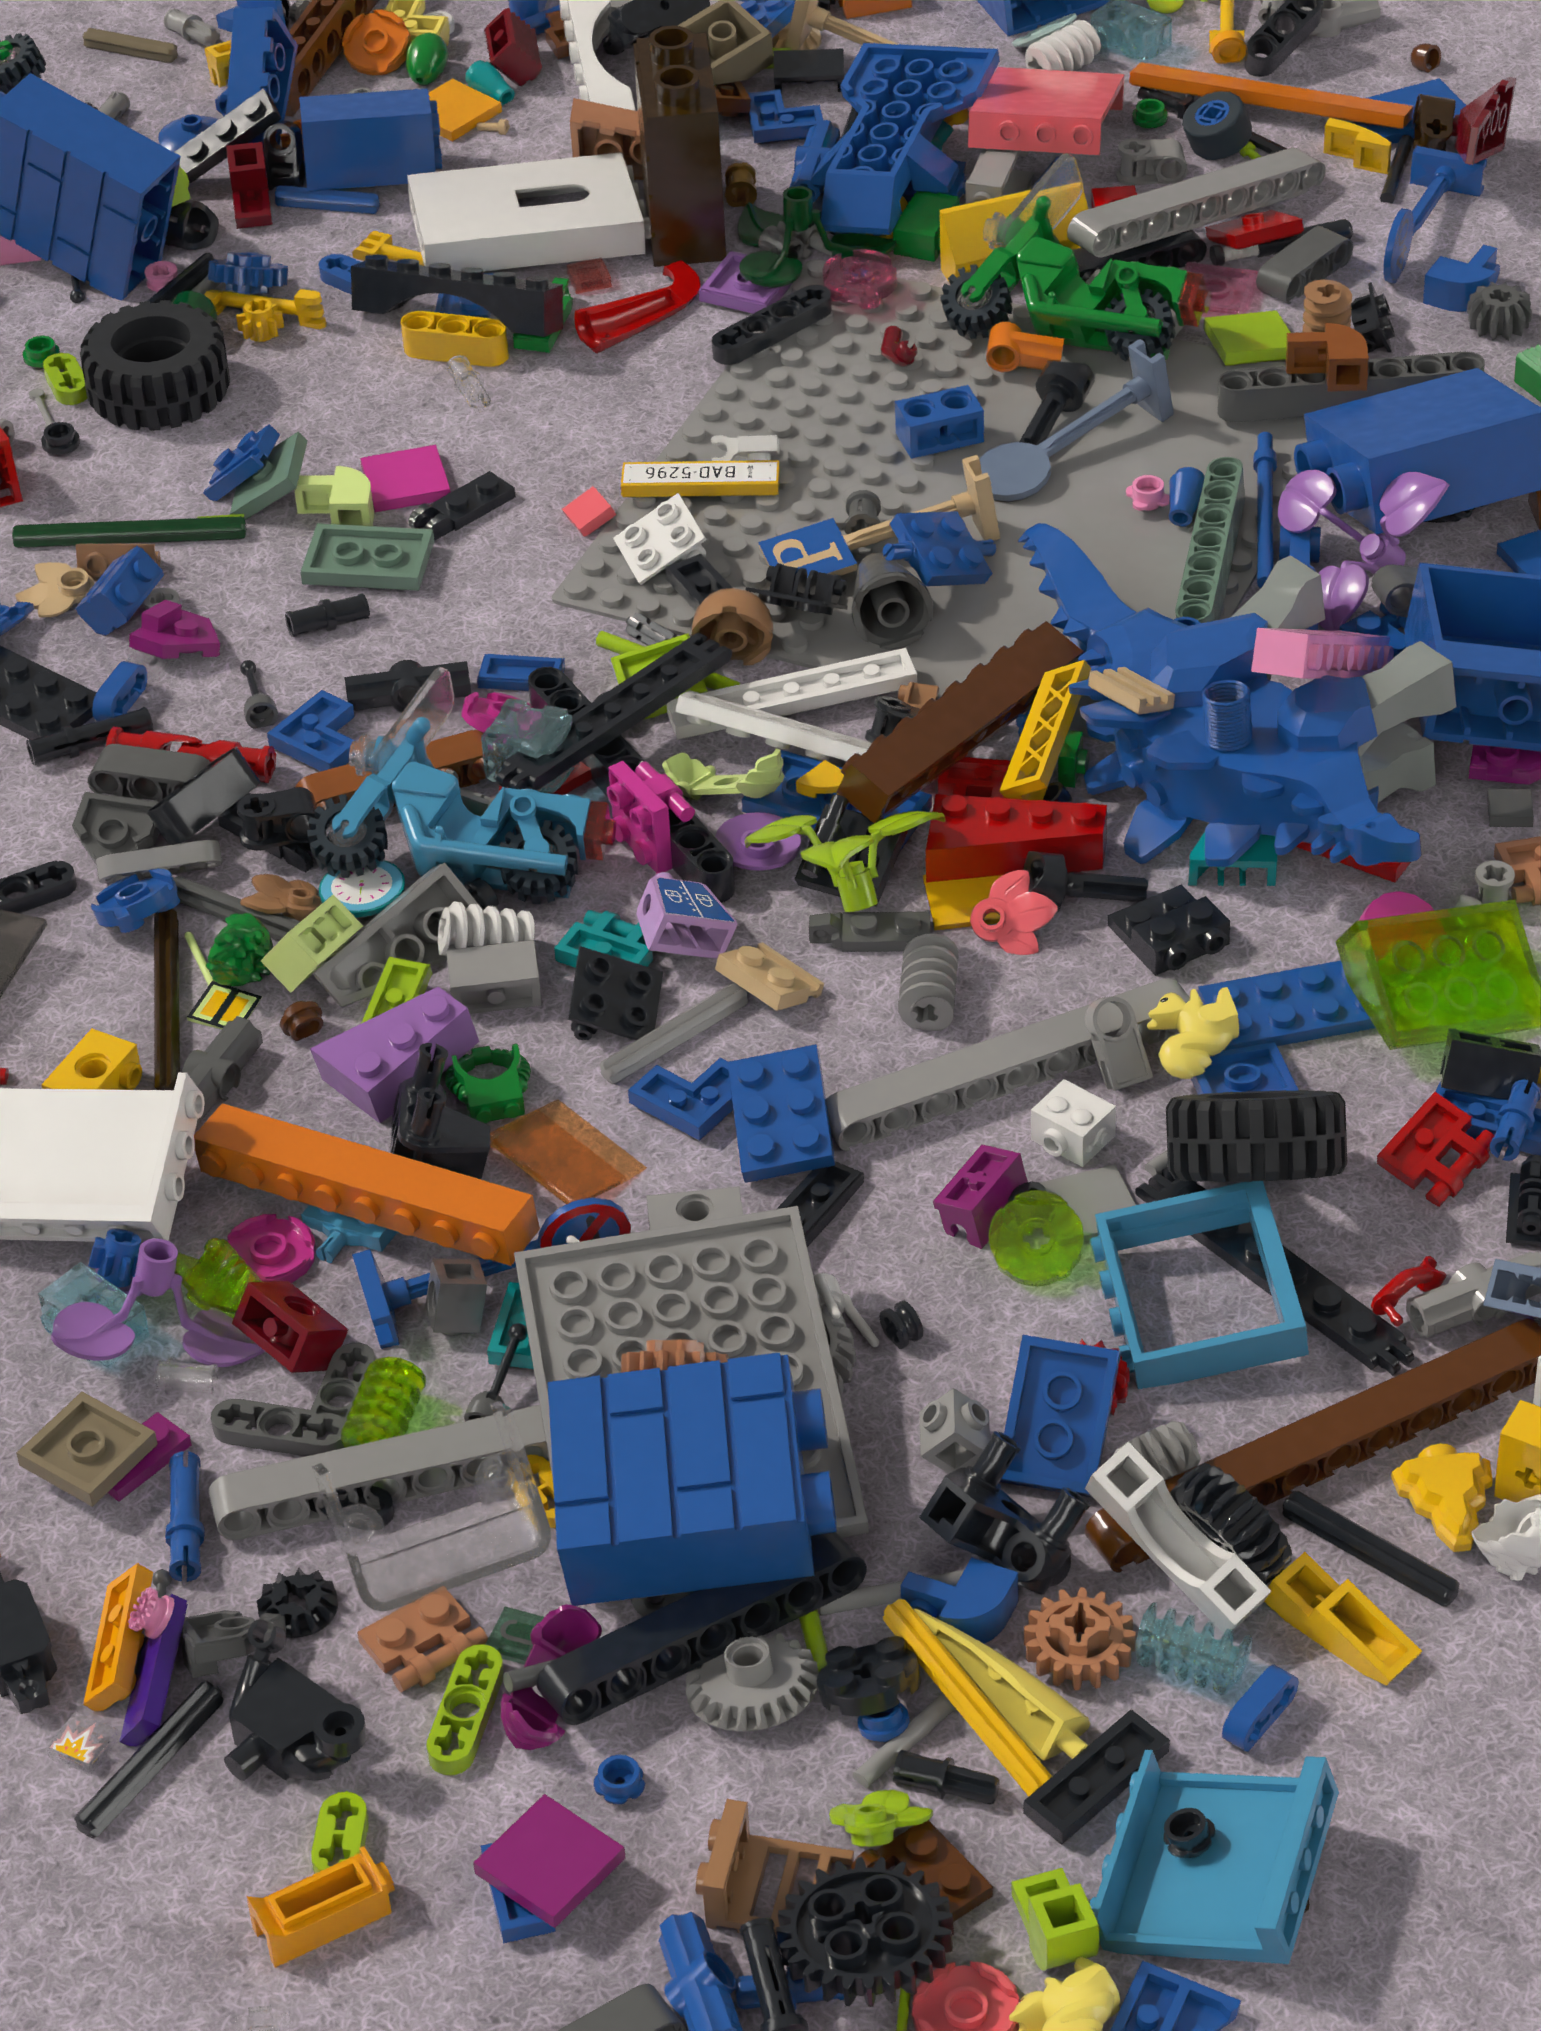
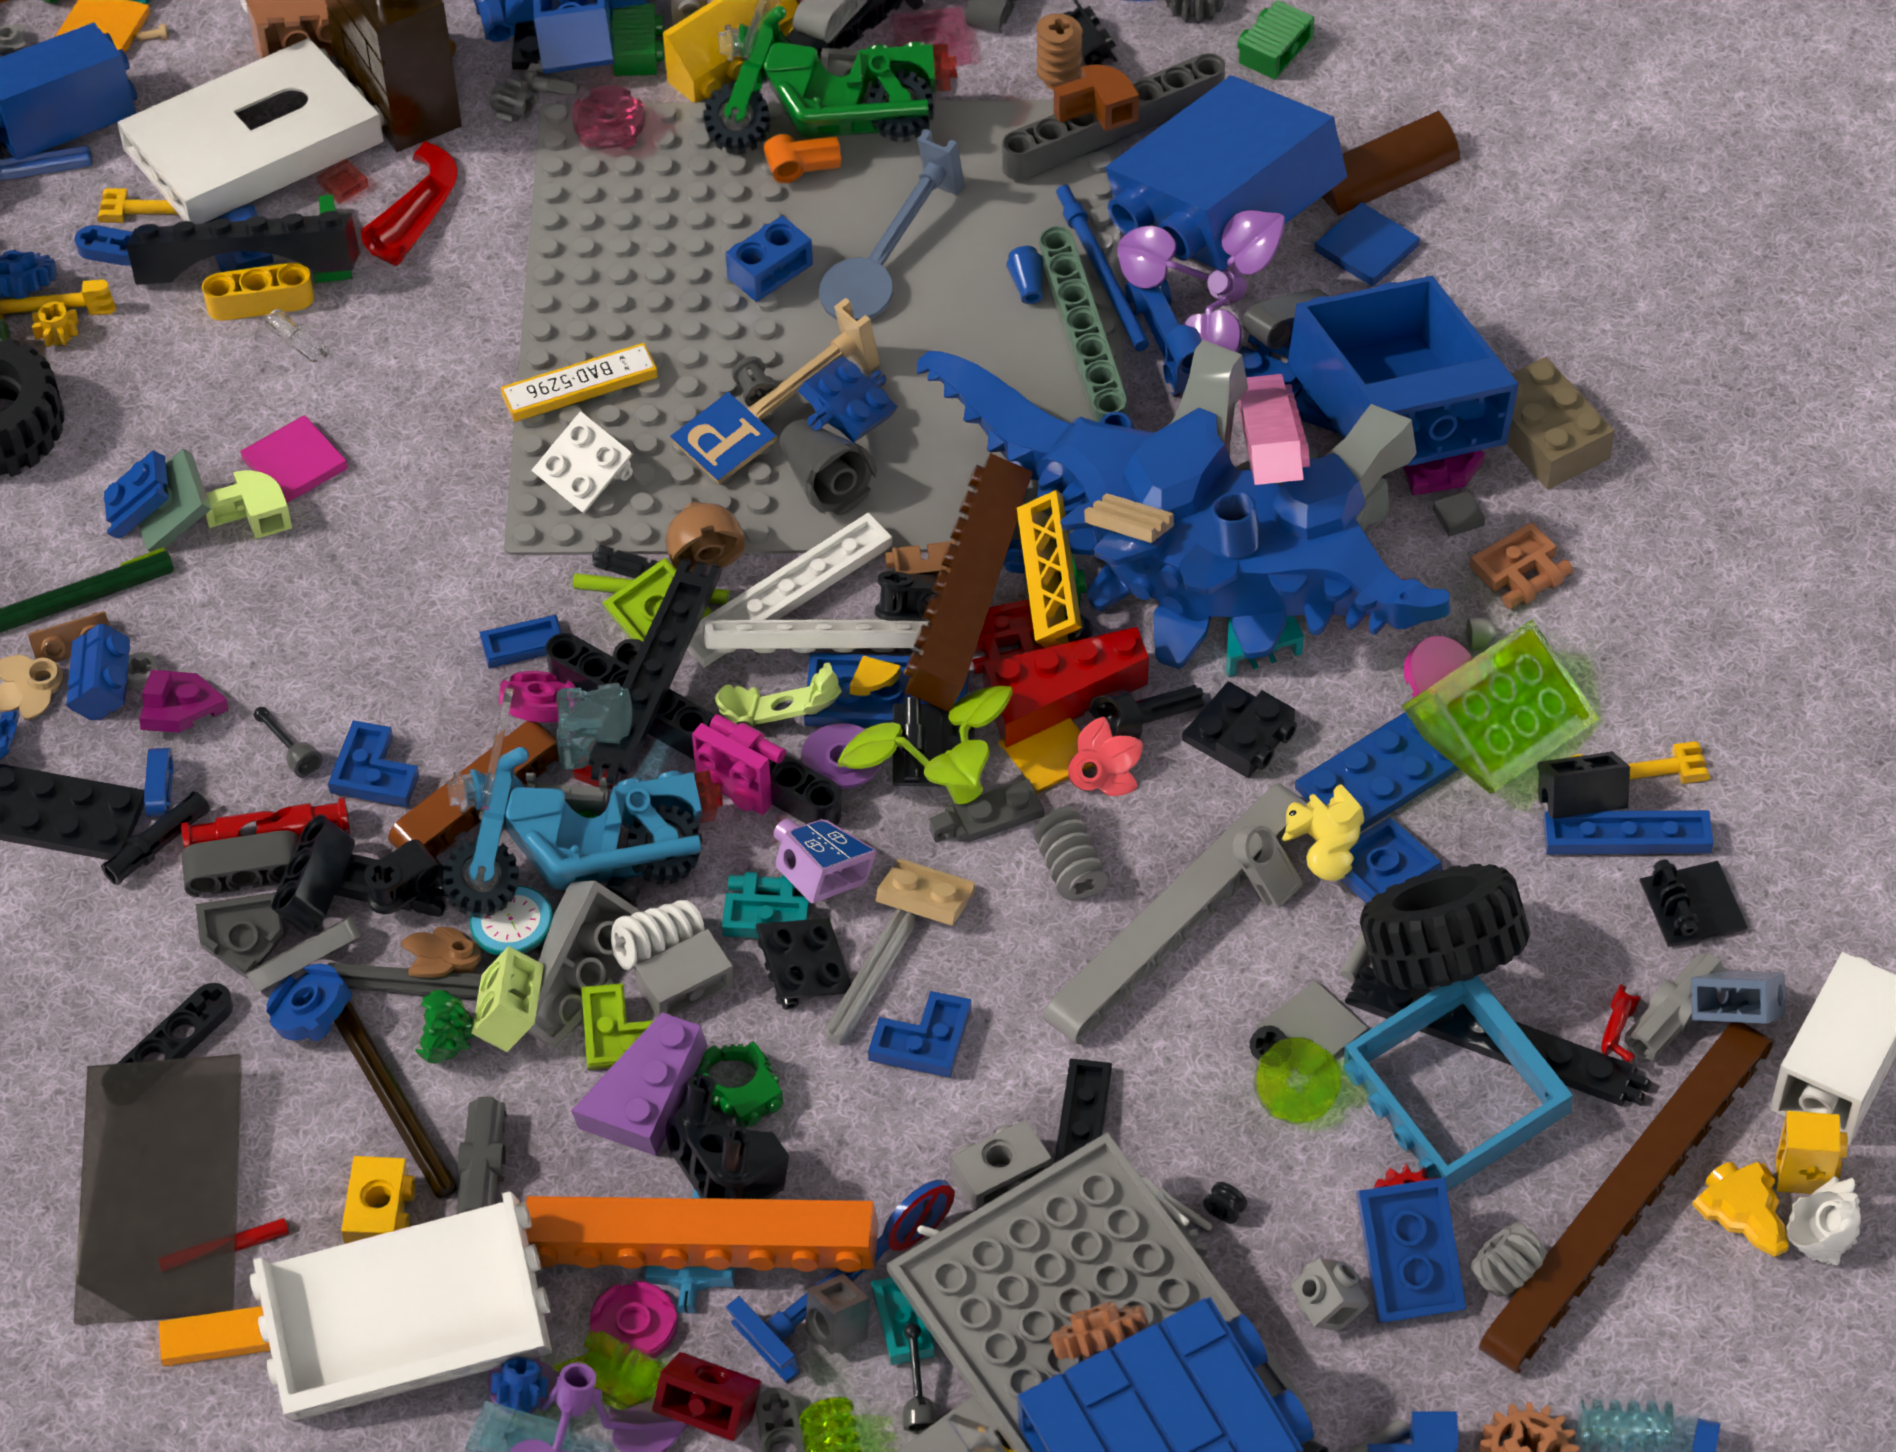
camera: 25 degrees left, 10 degrees up
(219, 1001) = (441, 1084): piece -> none
(302, 1020) = (532, 1076): reddish brown plate -> none
(327, 615) = (307, 635): black pin -> none
(367, 556) = (309, 559): sand green plate -> none
(401, 684) = (430, 689): black piece -> none
(463, 505) = (366, 473): black hinge -> none
(565, 1153) = (842, 1131): clear orange piece -> none
(589, 511) = (490, 447): coral tile -> none
(695, 579) = (646, 500): black plate -> none
(731, 290) = (501, 150): medium lavender plate -> none
(752, 447) = (617, 336): white plate -> none
(777, 270) = (521, 130): dark green plant -> none
(780, 1113) = (1017, 1031): blue plate -> none
(804, 308) = (559, 194): black beam -> none
(813, 594) = (763, 491): black hinge -> none
(895, 349) = (679, 189): dark red arm -> none
(978, 1518) = (1422, 1378): black piece -> none
(979, 1192) = (1225, 1050): magenta hinge -> none
(1061, 388) = (860, 191): black piece -> none
(1073, 1123) = (1264, 954): white head -> none
(1145, 1509) = (1605, 1355): white arch -> none
(1148, 493) = (990, 279): bright pink plate -> none
(1233, 1520) = (1610, 1307): black gear -> none
(1248, 337) = (993, 82): lime tile -> none
(1341, 1620) = (1722, 1355): yellow slope -> none
(1371, 1548) = (1708, 1277): black axle -> none
(1426, 1140) = (1564, 874): red plate -> none
(1494, 881) = (1485, 595): light grey bush -> none
(1515, 1120) = (1630, 832): blue pin -> none

